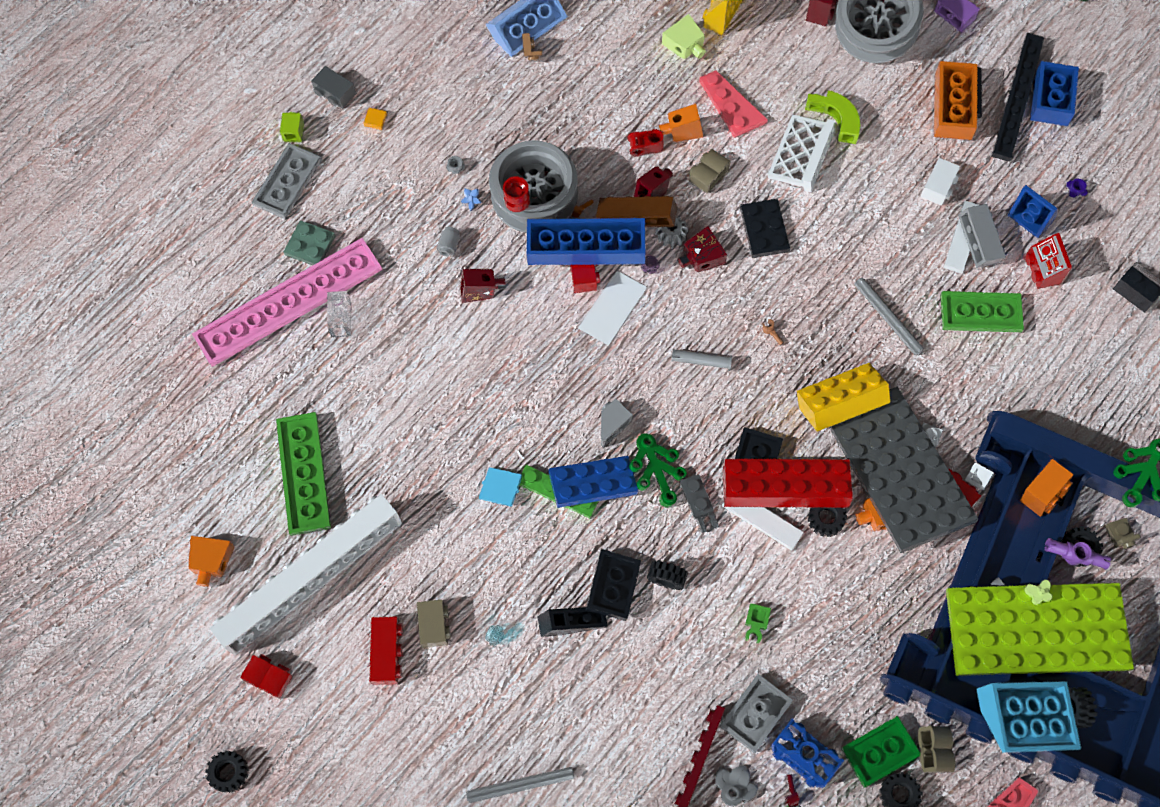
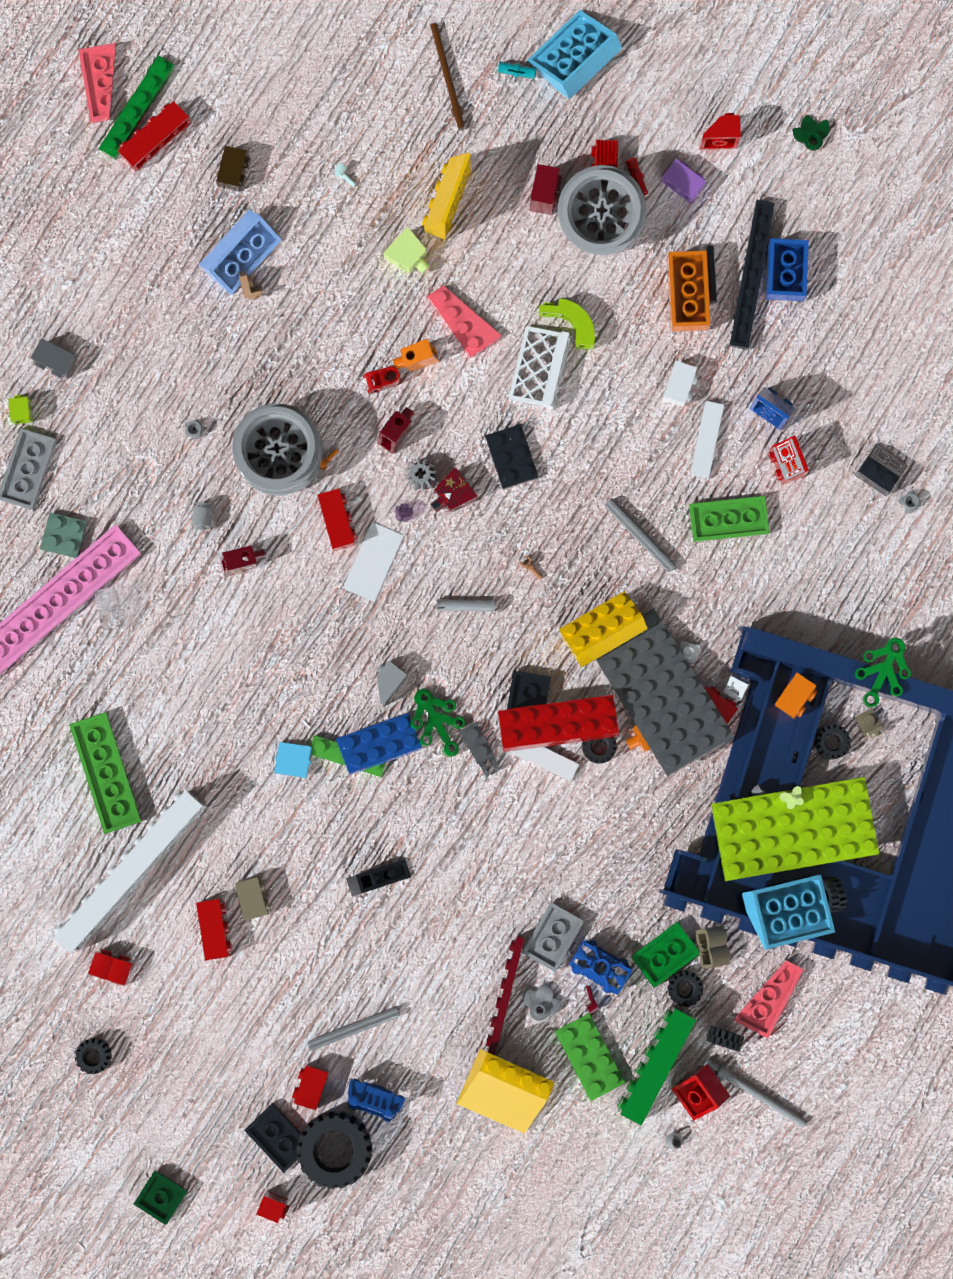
camera: 10 degrees left, 15 degrees up
(208, 558) = (34, 868): orange torso -> none
(375, 118) = (103, 387): light orange tile -> none
(471, 198) = (216, 464): medium blue plant -> none
(494, 635) = (310, 900): clear light blue plate -> none
(516, 194) = (263, 474): red wheel -> none
(585, 241) = (337, 506): blue brick -> none
(613, 585) = (411, 839): black plate -> none
(655, 210) = (383, 462): reddish brown brick -> none
(667, 575) = (459, 824): black tyre -> none
(709, 170) = (449, 403): dark tan brick -> none
(754, 712) = (558, 937): light grey plate -> none
(757, 619) = (545, 851): bright green plate -> none
(982, 236) = (723, 440): light grey brick -> none
(1068, 552) = (817, 753): medium lavender pin -> none
(1078, 183) = (815, 366): dark purple plate -> none

